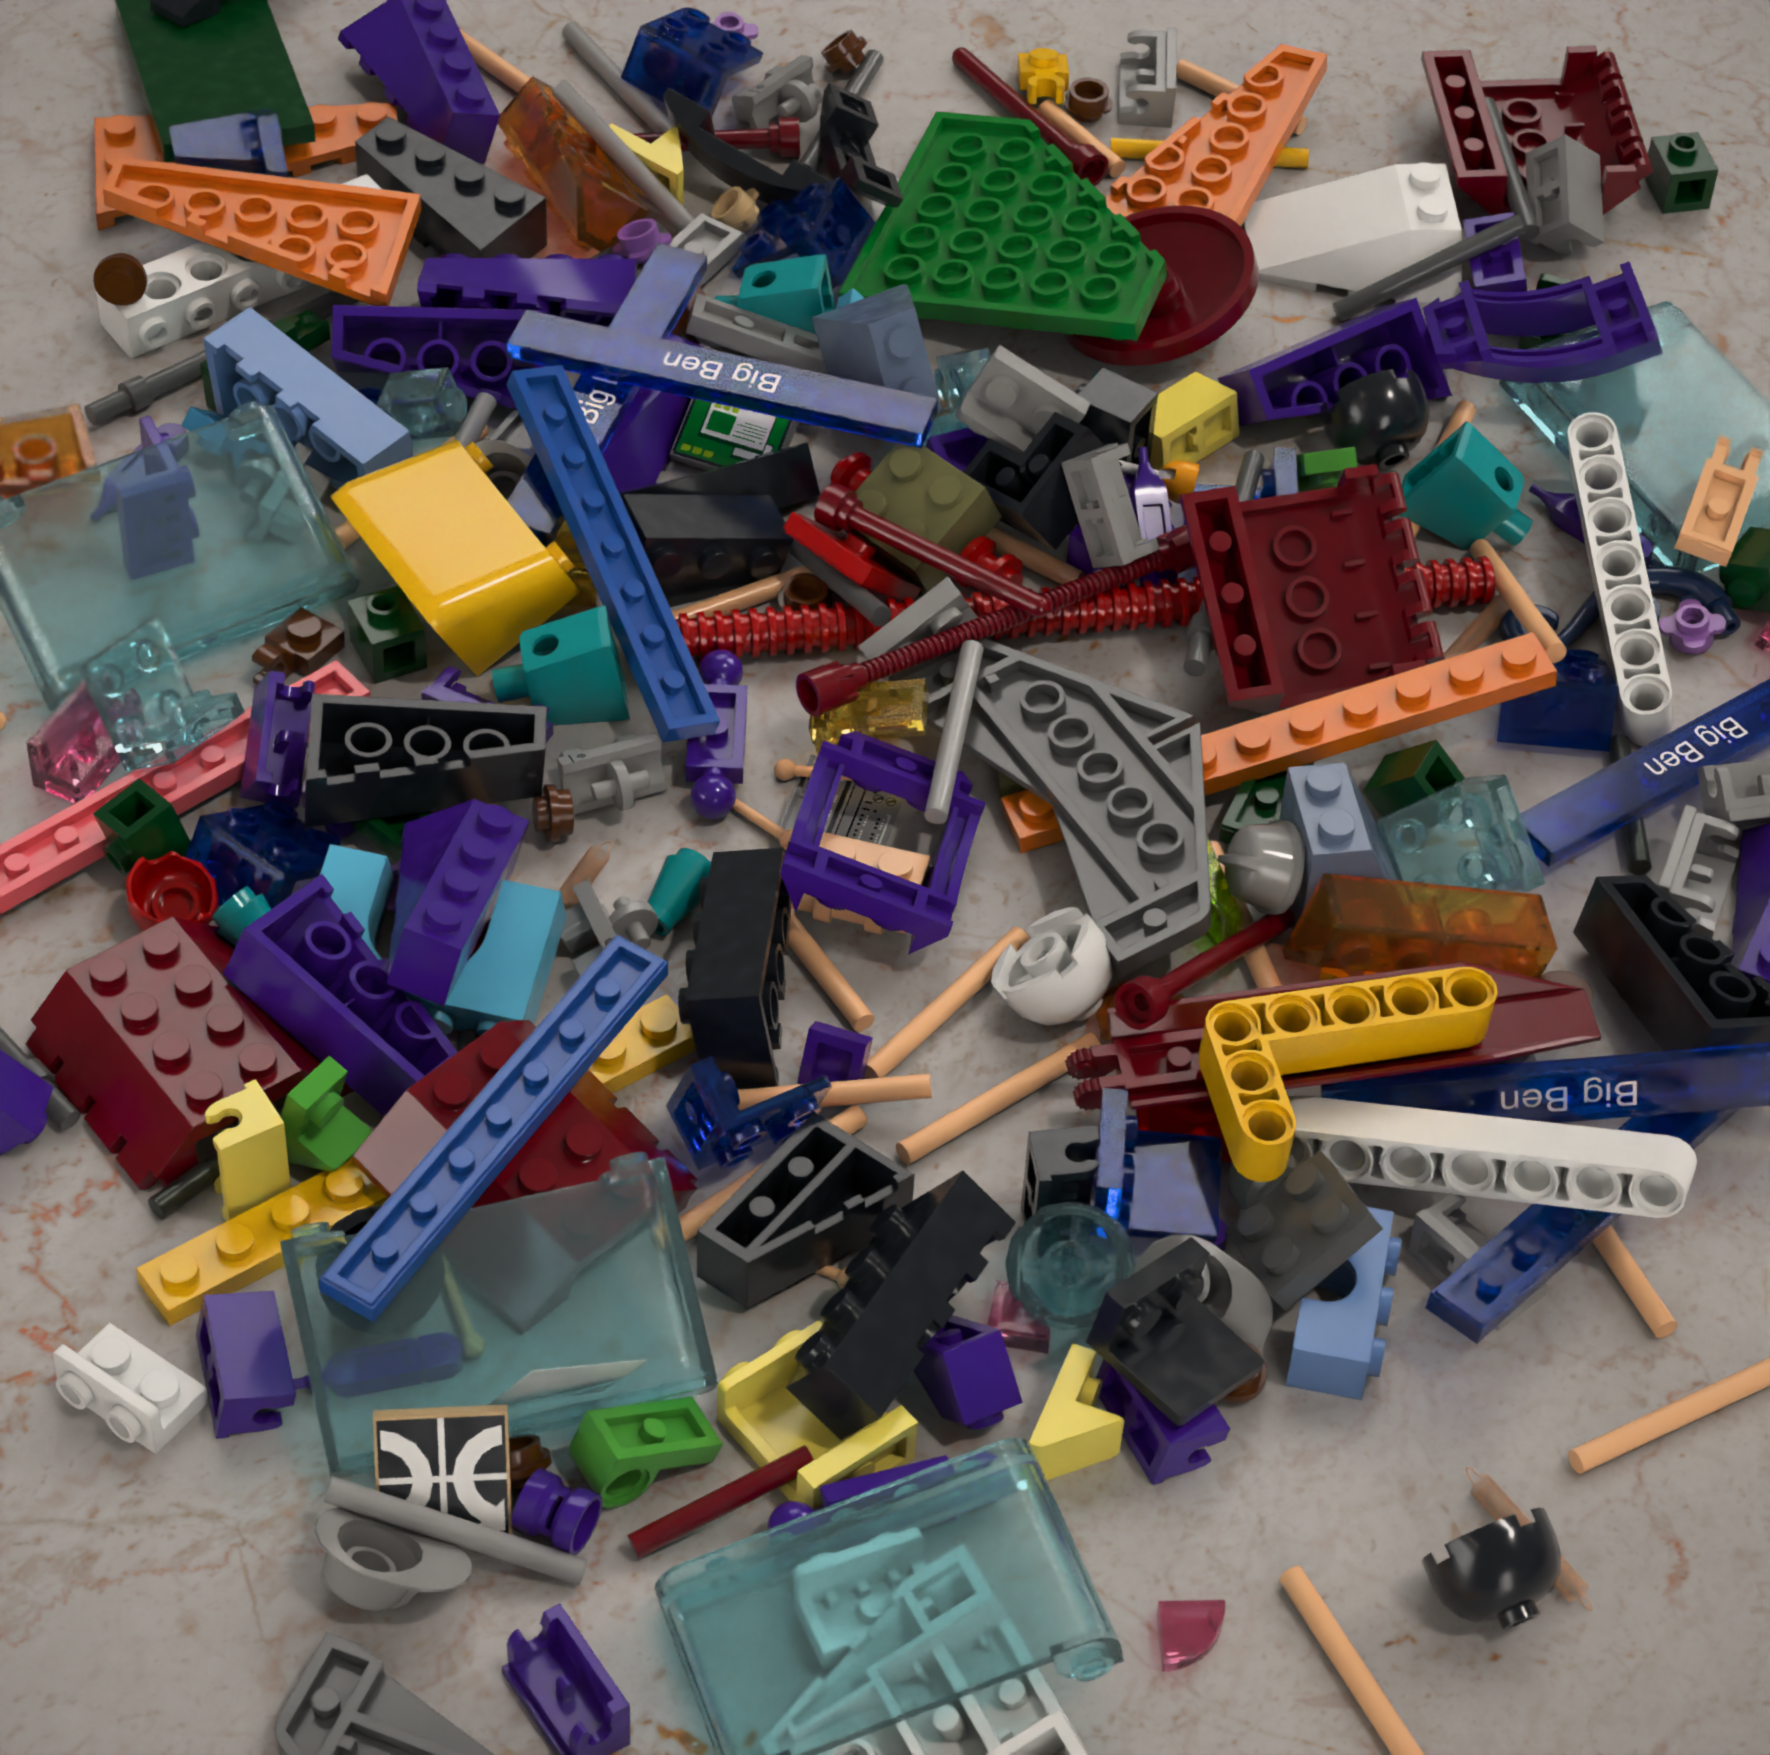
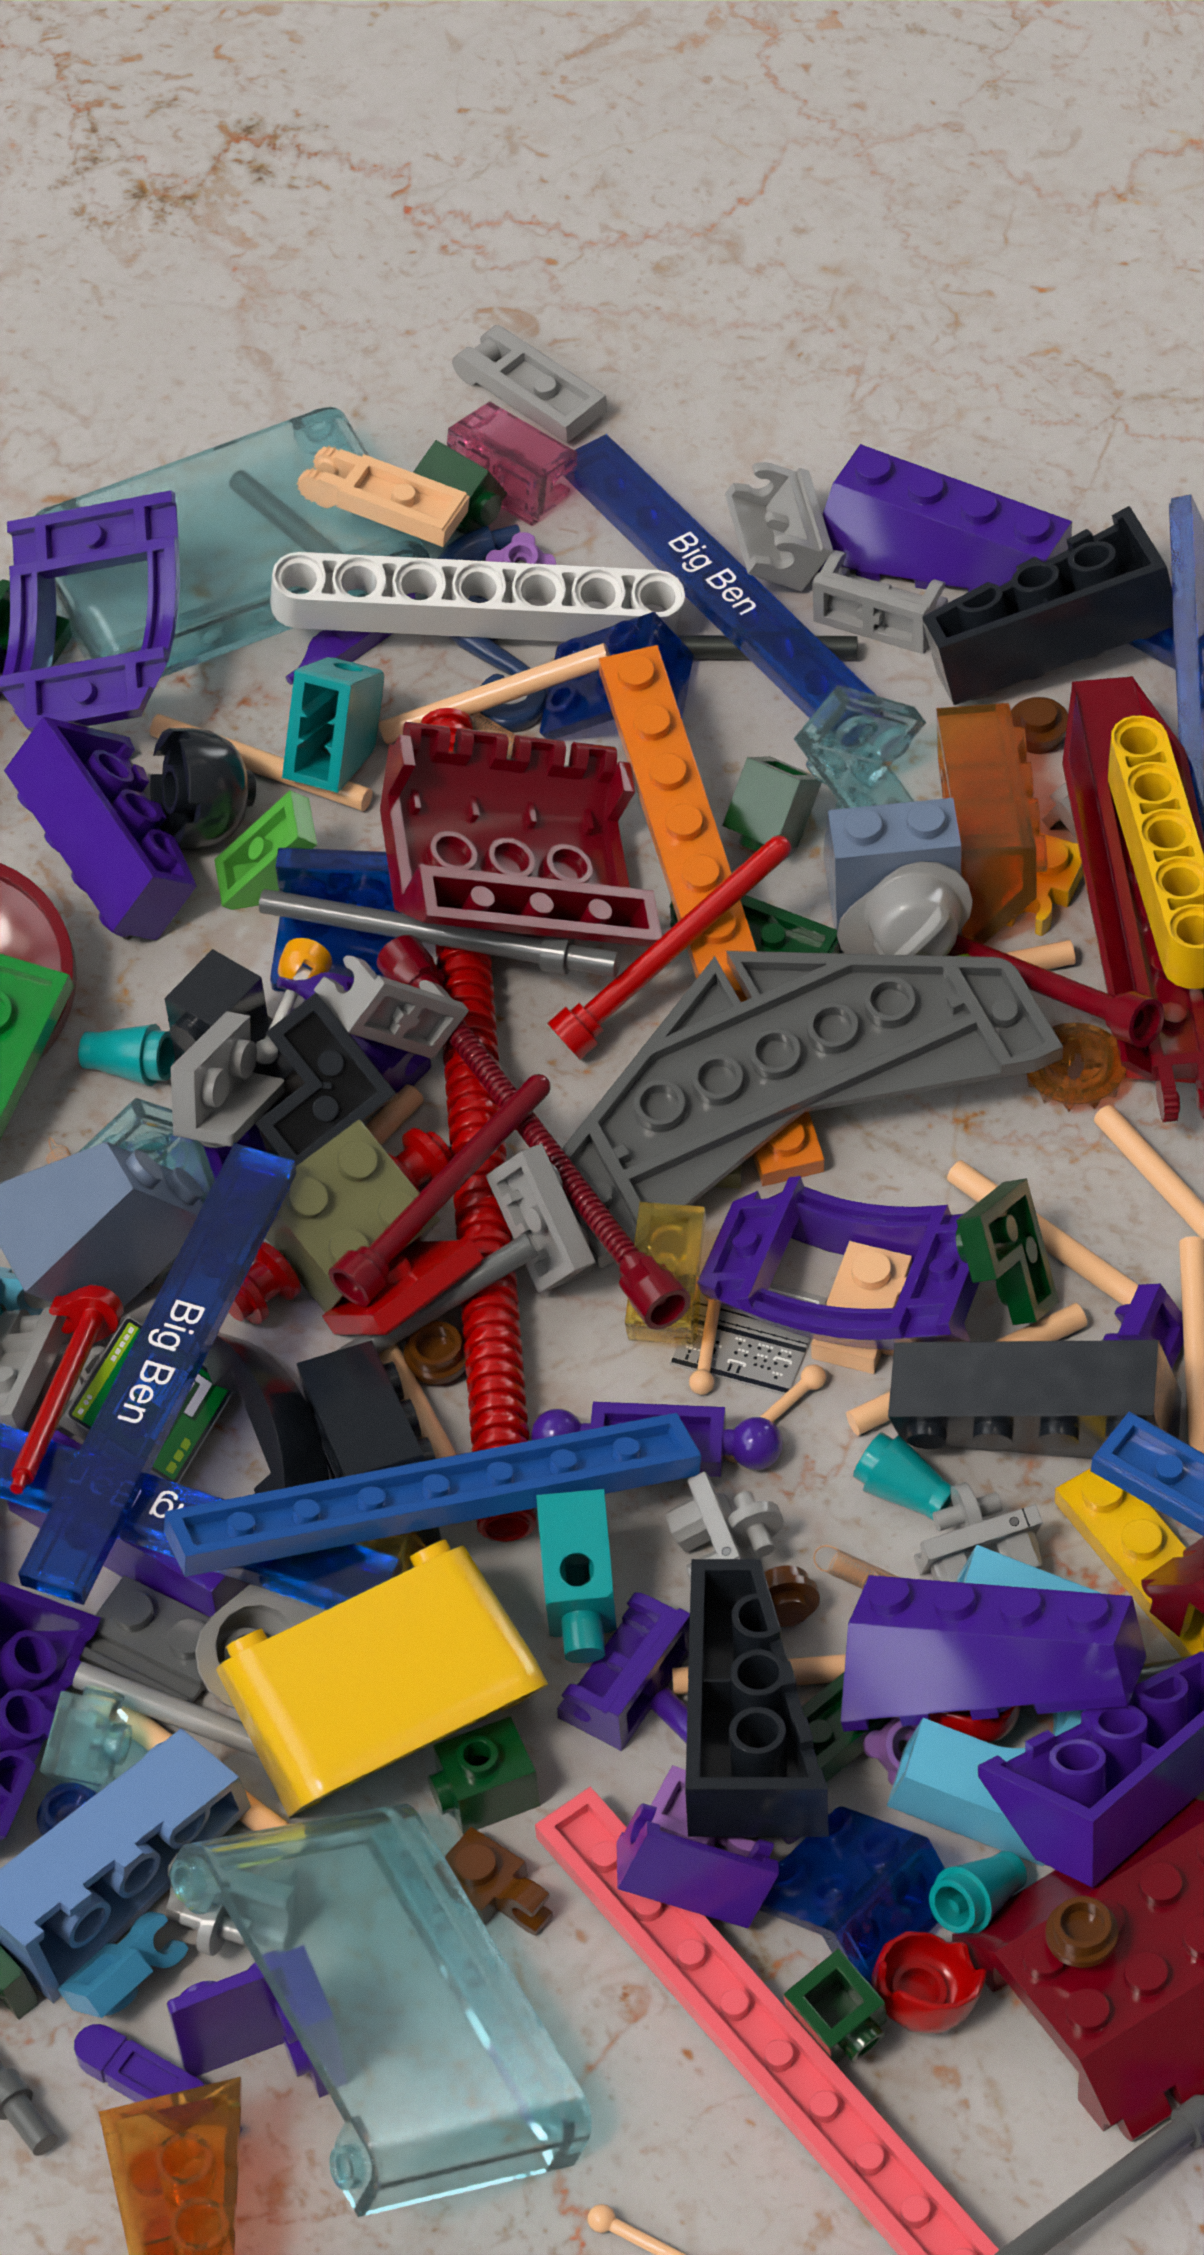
camera: 80 degrees left, 5 degrees up
(72, 749) = (655, 2105): clear pink hinge -> none
(150, 701) = (644, 1992): clear light blue bracket -> none
(167, 951) = (1082, 1932): none -> reddish brown plate
(709, 336) = (92, 1316): none -> red piece
(903, 923) = (1005, 1244): none -> dark green plate
(953, 732) = (708, 1185): light grey bar -> none
(1057, 971) = (1038, 1119): white cylinder -> none
(1151, 673) = (582, 1024): none -> red piece
(1193, 420) = (154, 955): light yellow hinge -> none

